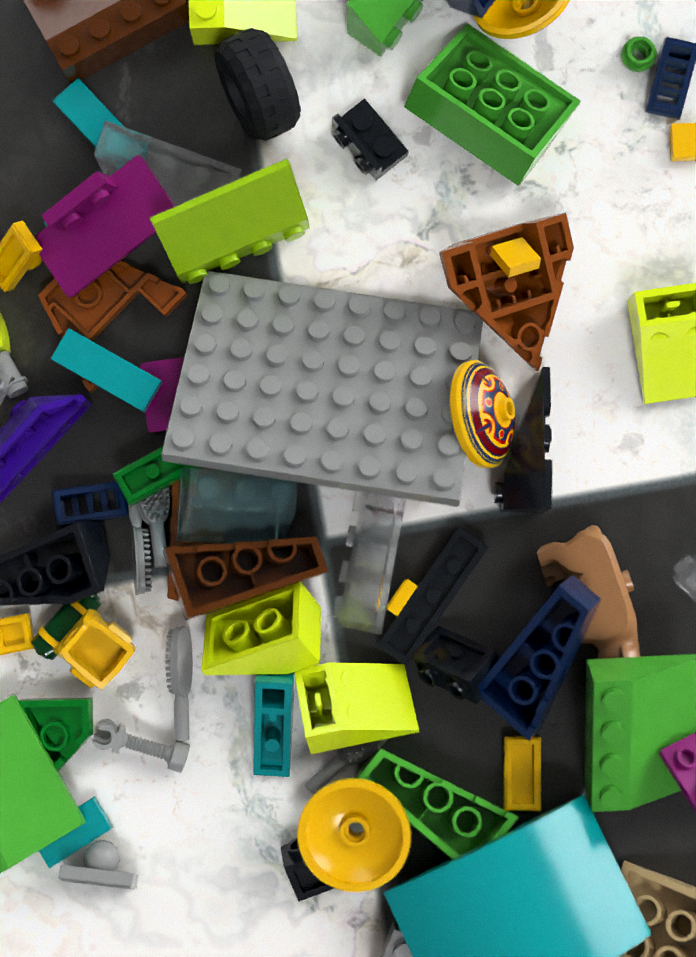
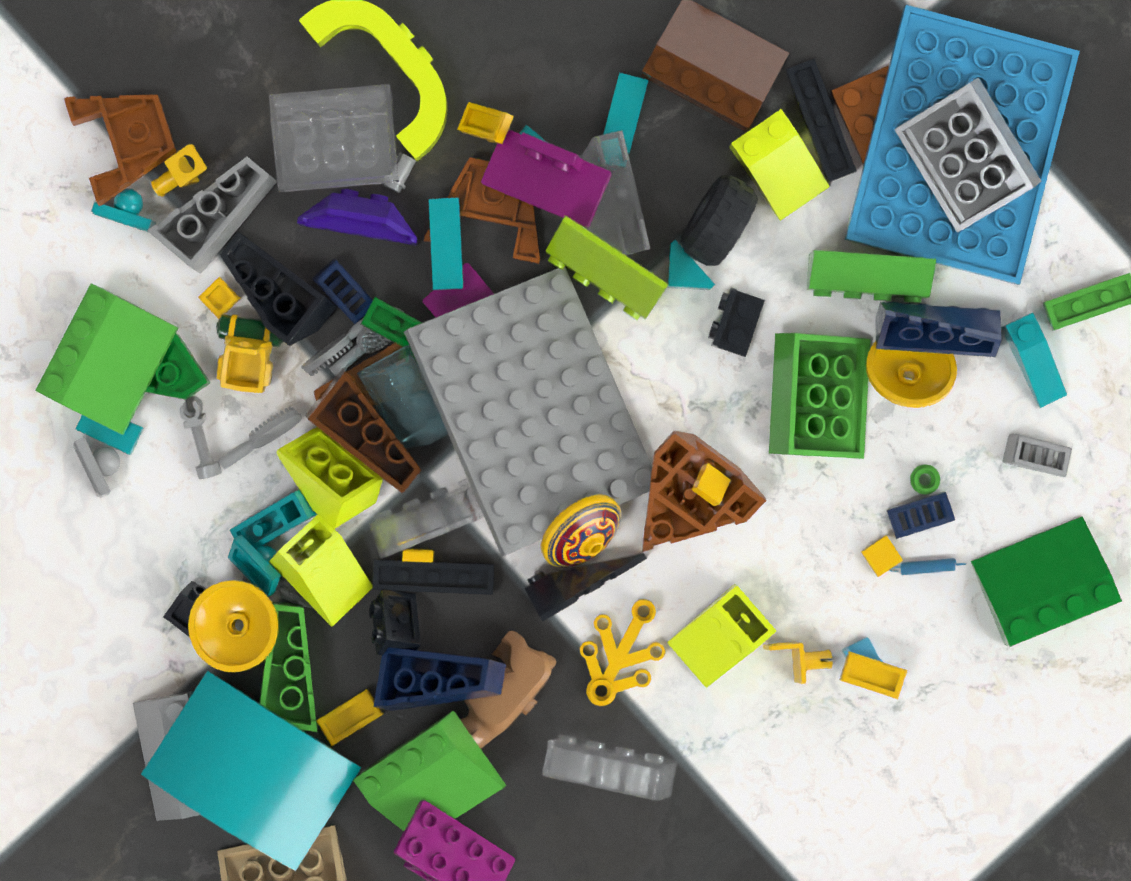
camera: 50 degrees right, 5 degrees up
(298, 149) = (685, 272): none -> teal slope
(305, 770) = (255, 564): none -> teal tile
(629, 460) = (619, 657): none -> yellow plant

